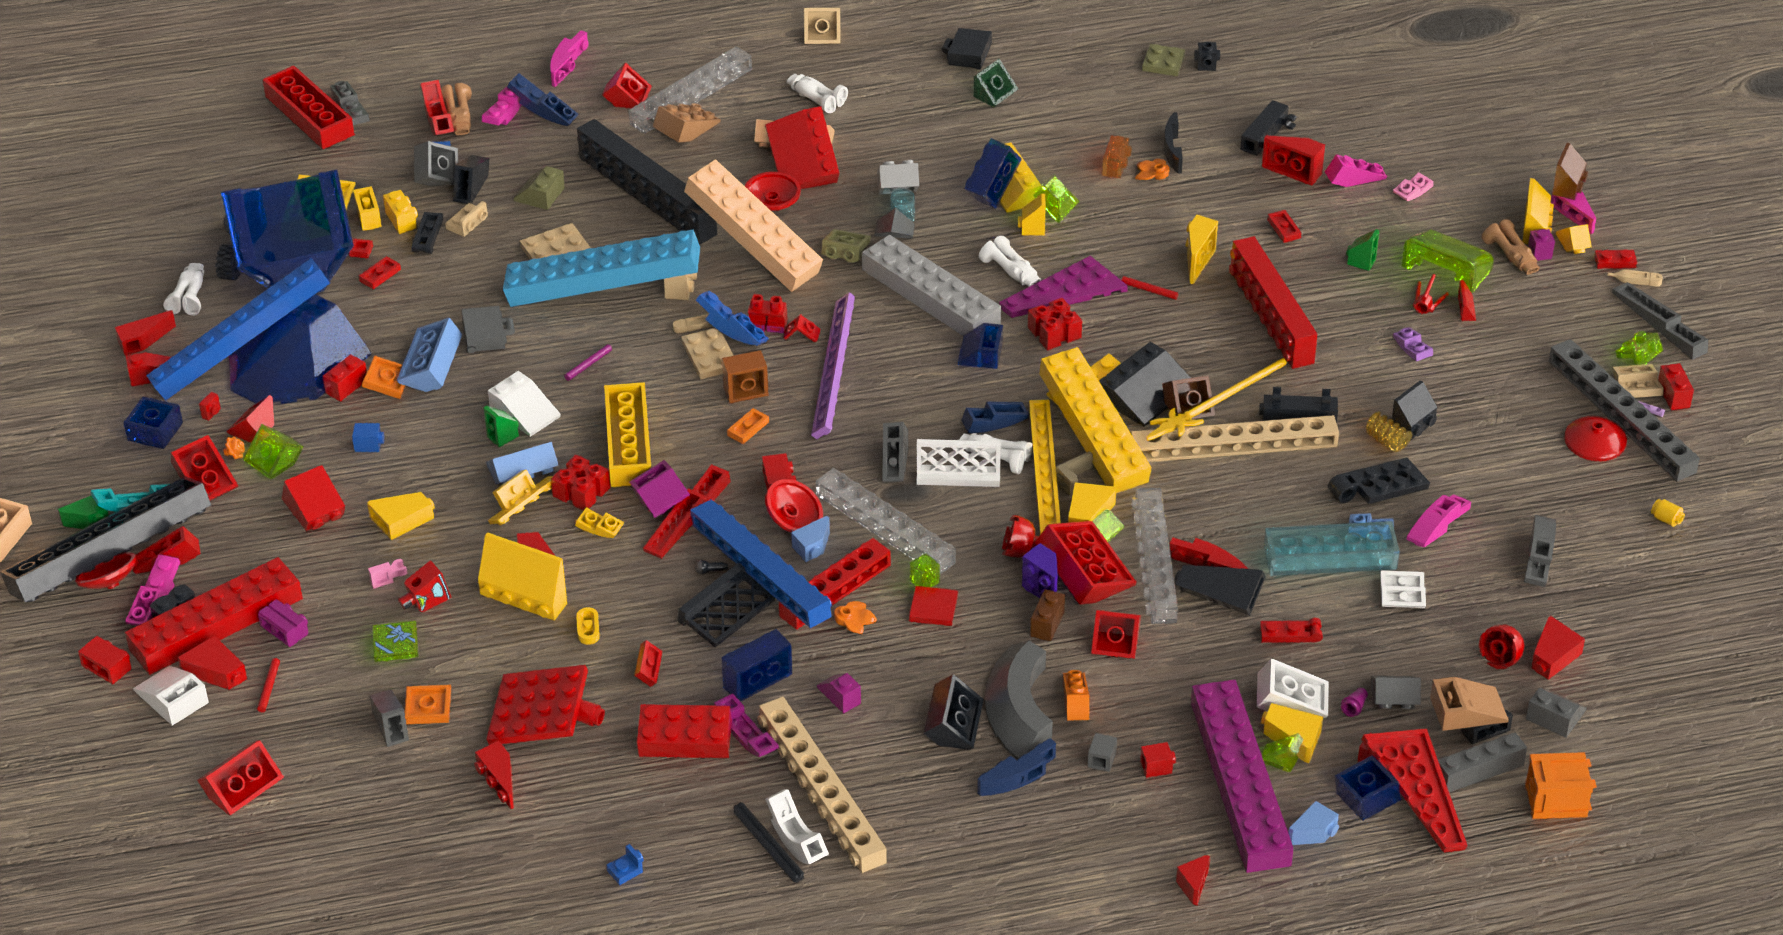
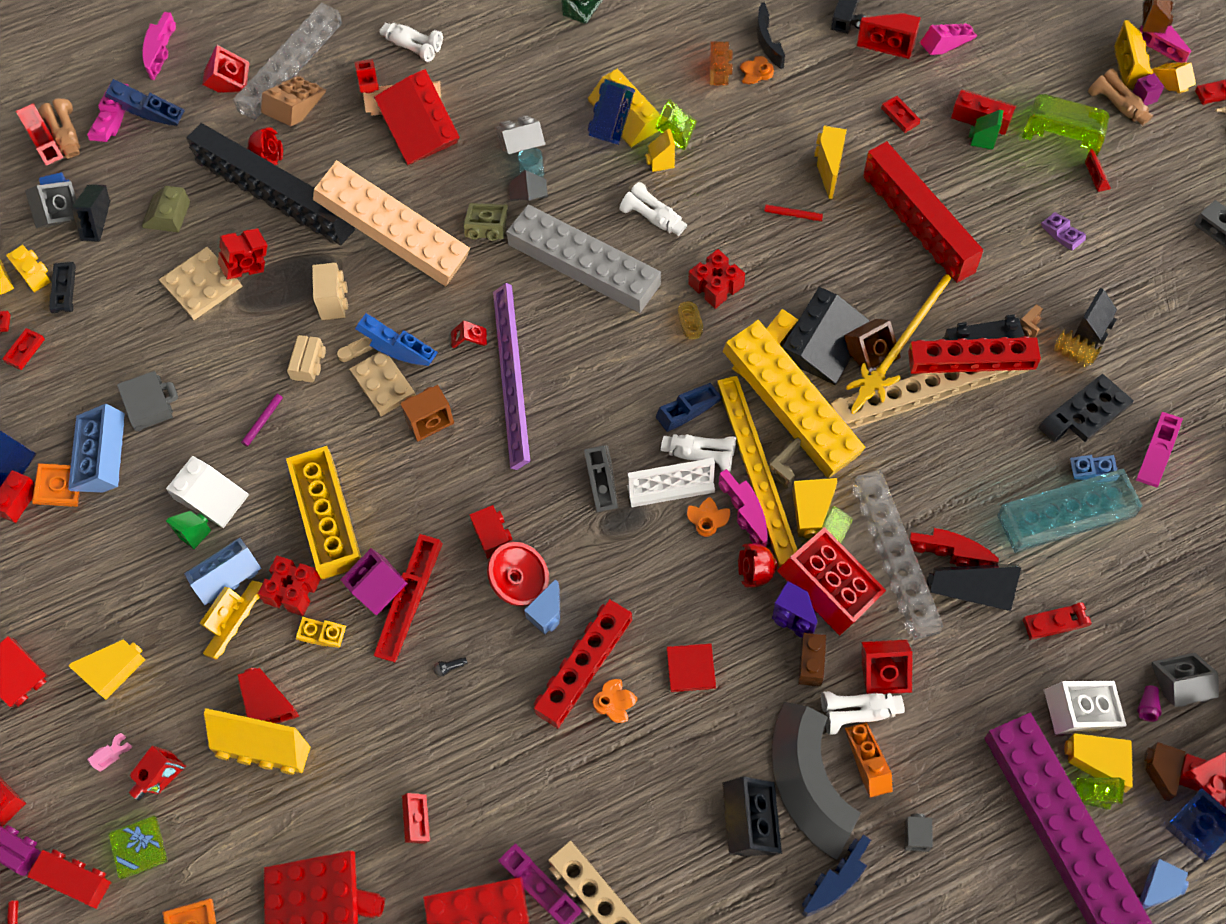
camera: 10 degrees left, 20 degrees up
(330, 651) = (70, 877): none -> red brick
(367, 437) = (52, 571): blue brick -> none
(467, 218) = (100, 261): tan bracket -> none
(588, 626) = (339, 779): yellow plate -> none
(602, 268) = (250, 309): dark azure brick -> none
(604, 226) = (242, 253): none -> red brick
(642, 321) = (306, 358): none -> tan brick
(652, 147) = (265, 144): none -> red cylinder
(711, 597) = (461, 708): black fence -> none
(748, 426) = (444, 471): orange plate -> none
(757, 665) = (532, 802): clear blue brick -> none
(761, 563) = (505, 663): blue brick -> none
(763, 108) = (366, 76): none -> red slope
(768, 313) = (424, 322): red hips -> none
(774, 189) = (398, 170): red dish -> none
(842, 691) = (625, 808): magenta slope -> none
(883, 519) = (619, 578): clear brick -> none
(924, 571) = (672, 629): clear neon green brick -> none
(982, 346) = (652, 322): clear blue slope -> none
(986, 502) = (708, 515): none -> orange plate
(1019, 352) = (691, 321): none -> clear yellow plate
(1024, 494) = (750, 514): none -> dark pink slope
(1073, 284) = (713, 228): magenta wing -> none
(1080, 657) = (873, 708): none -> white piece
(1157, 759) = (977, 831): red brick -> none
(1279, 414) = (984, 360): none -> red brick
(1347, 744) = (1165, 768): none -> reddish brown slope
(1350, 405) = (1030, 321): none -> medium nougat bracket
(1352, 227) = (972, 106): none -> red slope
(1402, 589) = (1149, 543): white slope -> none
(1413, 188) = (1006, 43): bright pink slope -> none
(1424, 302) = (1060, 180): red plant -> none

